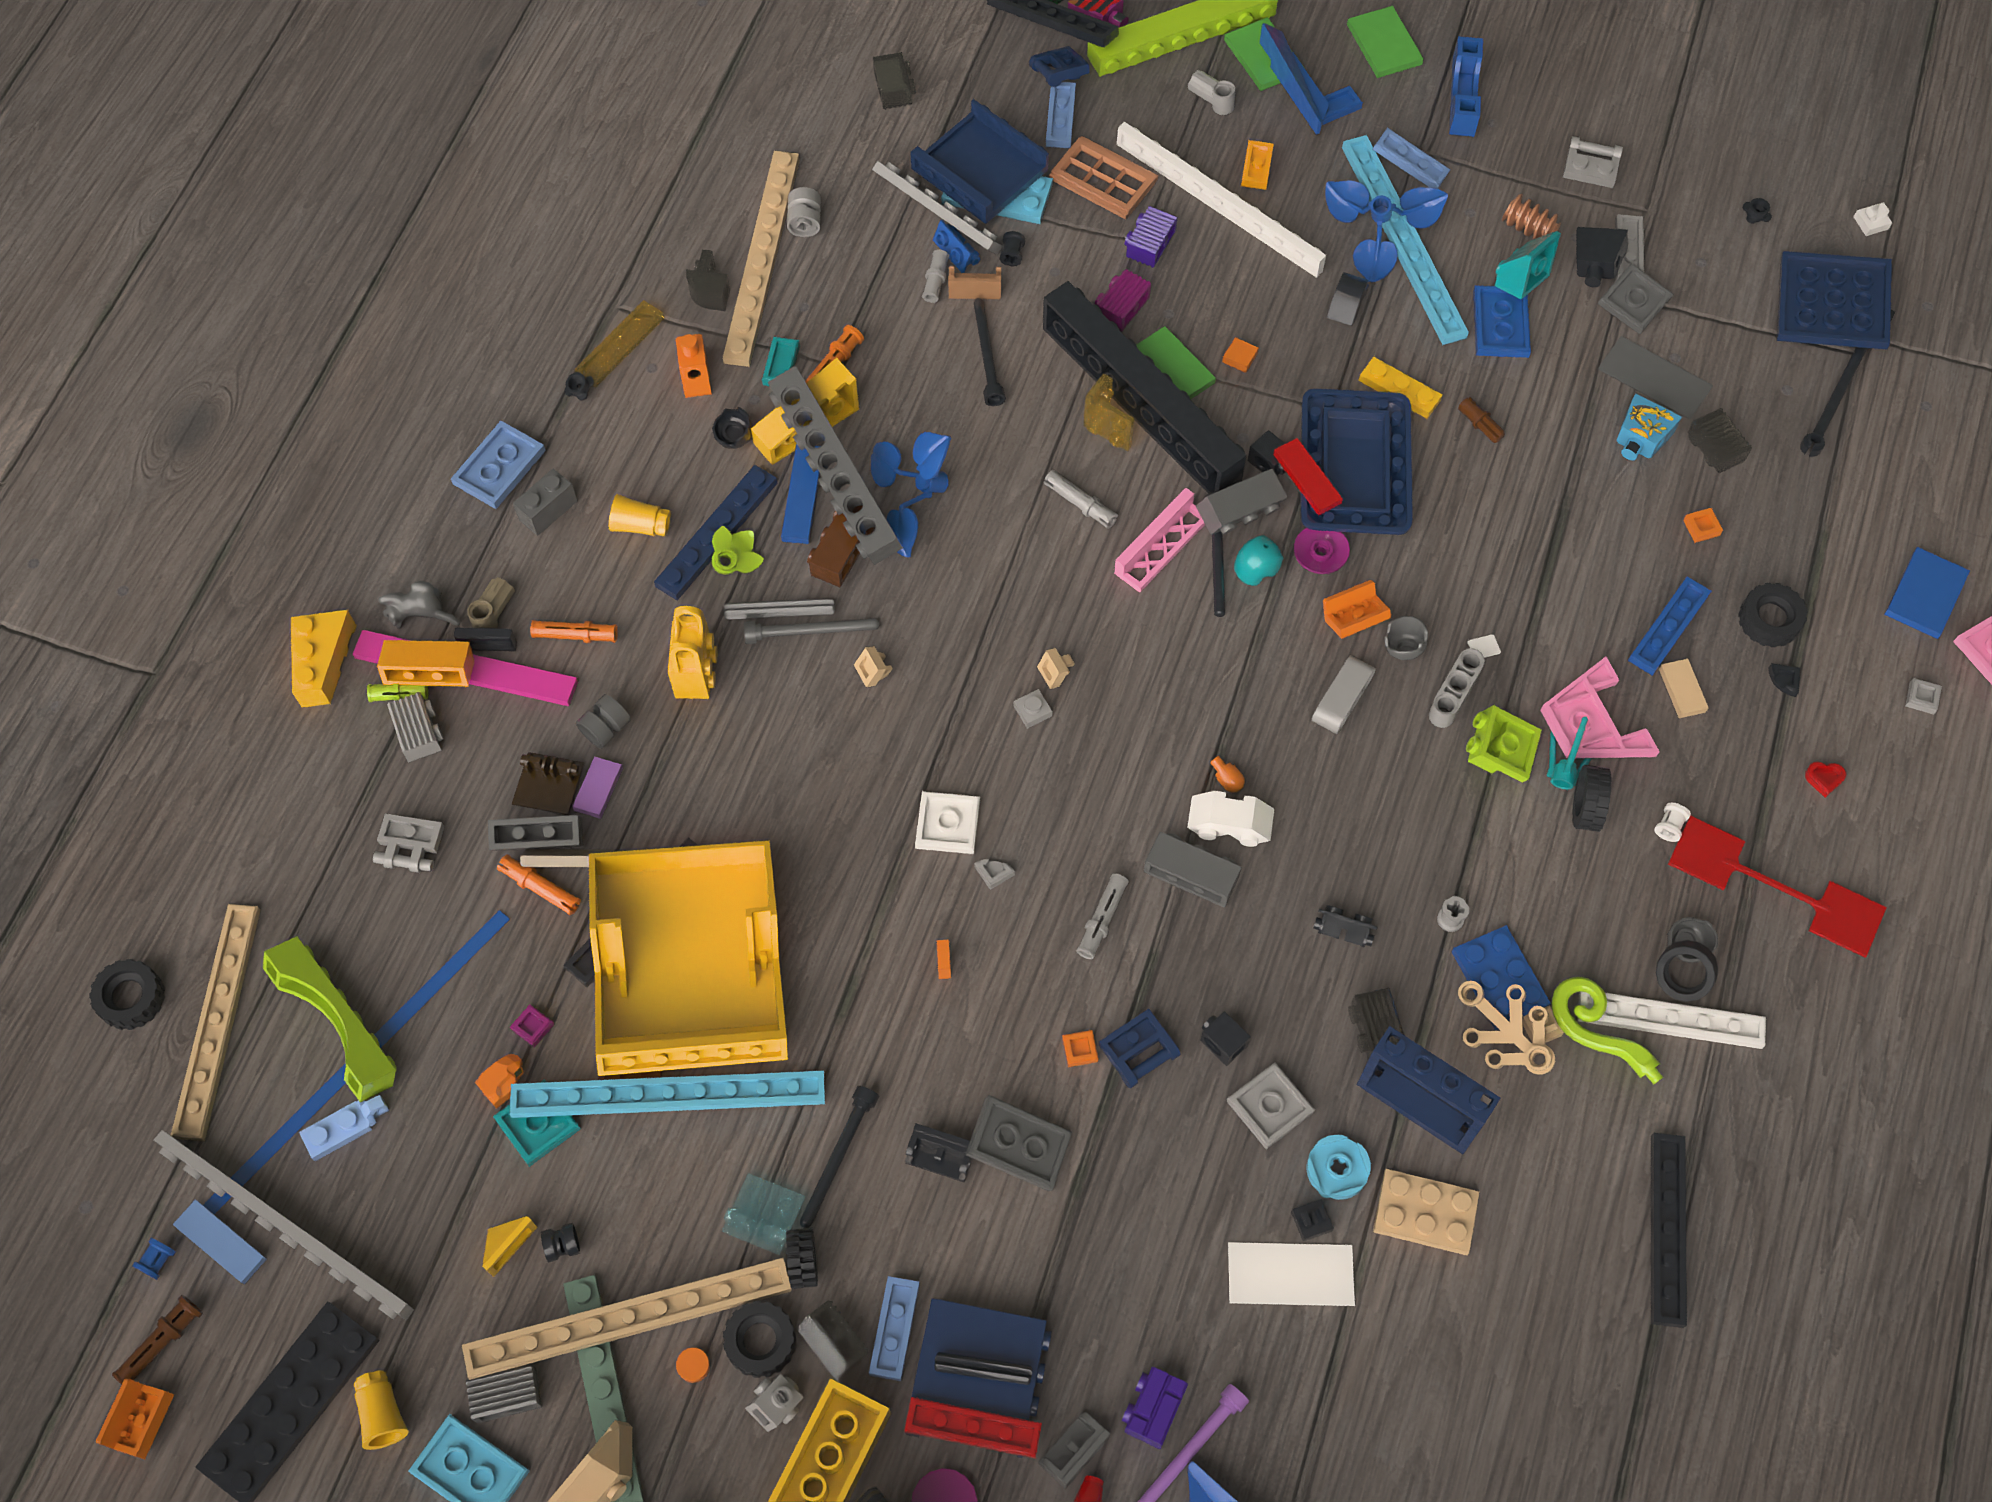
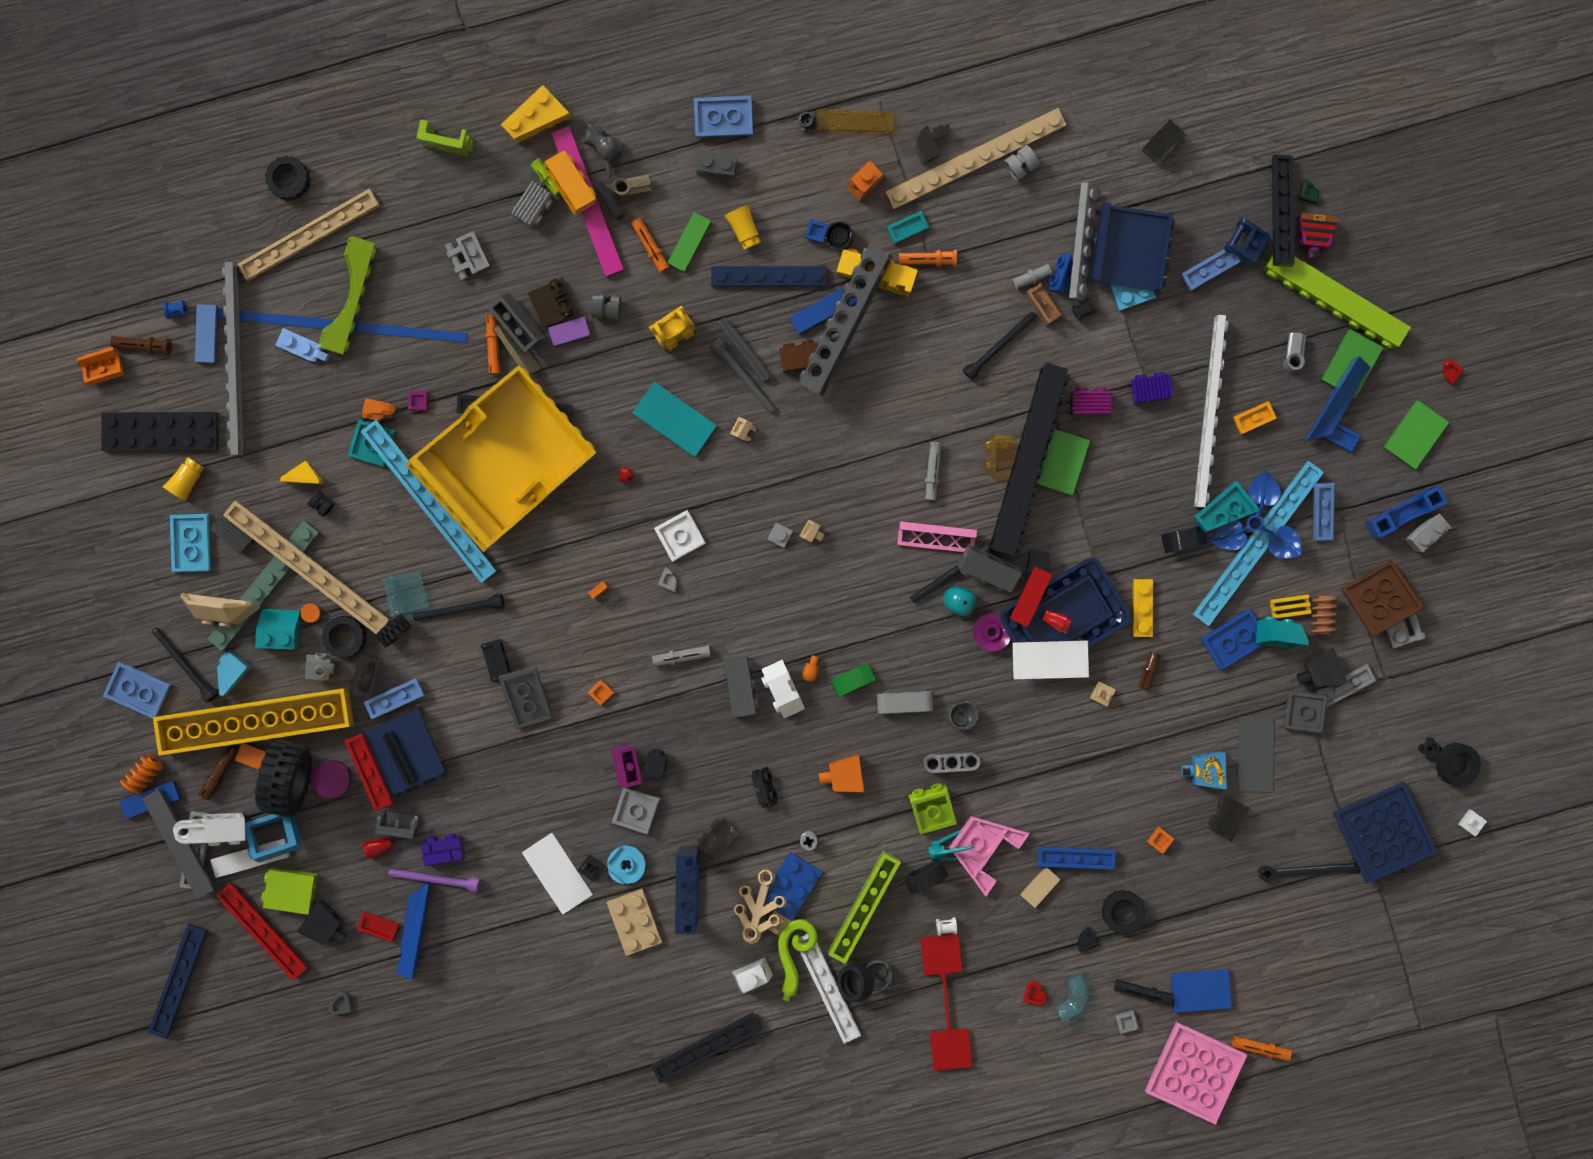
camera: 55 degrees right, 25 degrees up
(254, 771) = (428, 139): none -> lime panel
(606, 589) = (689, 242): none -> bright green tile
(683, 1426) = (278, 629): none -> teal slope
(707, 450) = (816, 231): none -> blue plate
(736, 549) = (764, 297): lime plate -> none
(800, 737) = (674, 419): none -> teal tile
(822, 835) = (625, 475): none -> red hinge
(929, 454) = (882, 377): blue plant -> none
(1095, 195) = (1198, 326): nougat piece -> none
(1134, 1039) = (624, 718): dark blue plate -> none
(1202, 1072) = (626, 766): none -> magenta brick
(1240, 355) = (1101, 498): orange tile -> none
(1275, 735) = (853, 680): none -> green slope
(1341, 241) = (1225, 508): none -> teal wing
(1355, 609) = (964, 676): orange bracket -> none
(1358, 463) = (1058, 621): none -> red cone
(1393, 817) = (844, 775): none -> orange torso
(1399, 503) = (1050, 660): none -> white sticker
(1477, 484) = (1102, 693): none -> tan tile
(1486, 645) = (993, 760): white sticker -> none
(1503, 82) = (1427, 533): none -> light grey brick
(1505, 234) = (1306, 604): none -> yellow tile
(1550, 157) = (1382, 598): none -> reddish brown plate
(1587, 899) = (864, 907): none -> lime brick
(1599, 1094) = (752, 975): none -> white torso
(1788, 202) = (1471, 769): none -> black tyre
(1863, 731) = (1077, 997): none -> clear light blue cylinder
(1901, 645) = (1151, 994): none -> black pin

